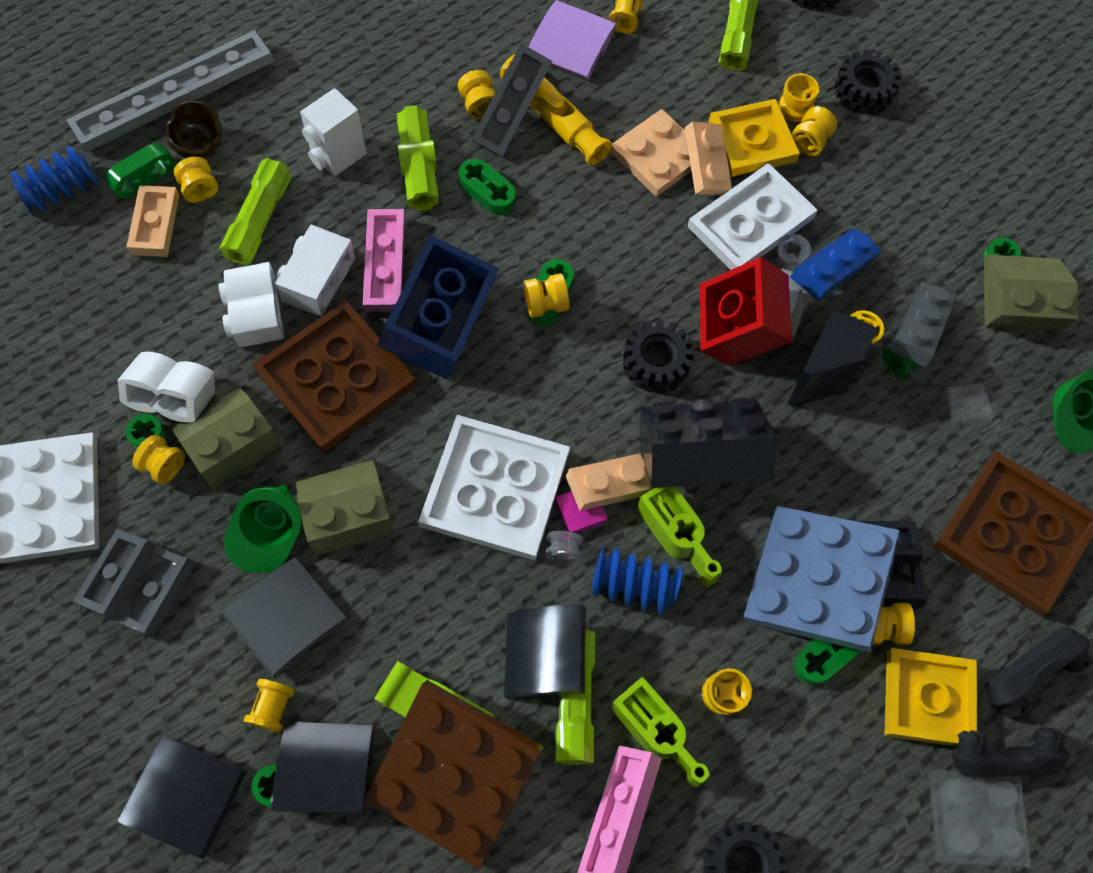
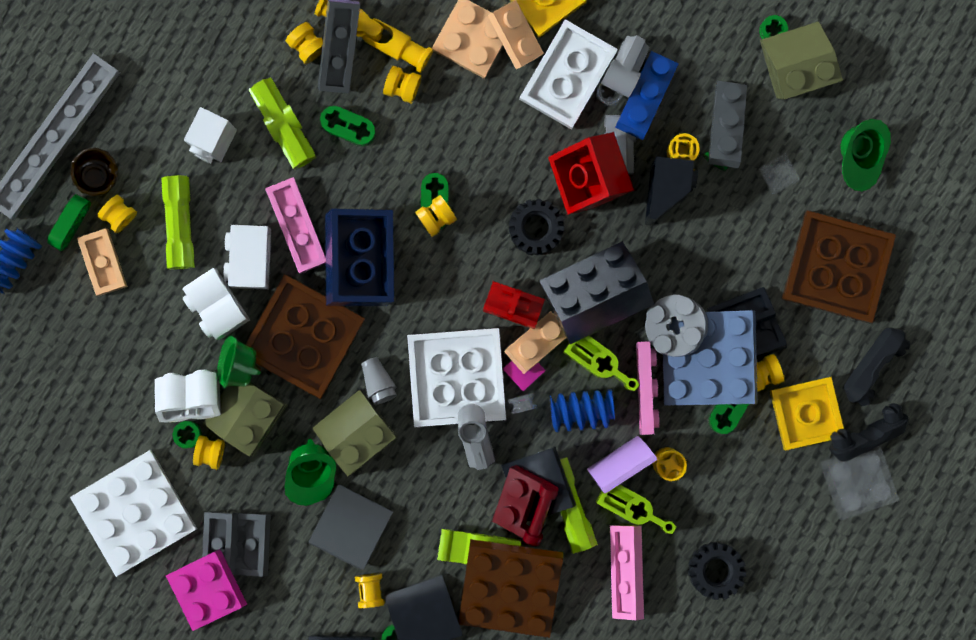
camera: 15 degrees left, 20 degrees up
(65, 622) = (206, 590): none -> dark pink plate
(241, 366) = (236, 363): none -> green piece
(398, 457) = (378, 382): none -> light grey cone
(488, 562) = (475, 437): none -> light grey piece
(510, 661) = (517, 502): none -> dark red plate
(563, 165) = (409, 85): none -> yellow wheel
(598, 426) = (513, 305): none -> red hips
(665, 664) = (621, 464): none -> lavender slope
(728, 586) = (647, 388): none -> bright pink plate
(809, 534) = (690, 336): none -> light grey plate
(821, 227) = (624, 70): none -> light grey piece

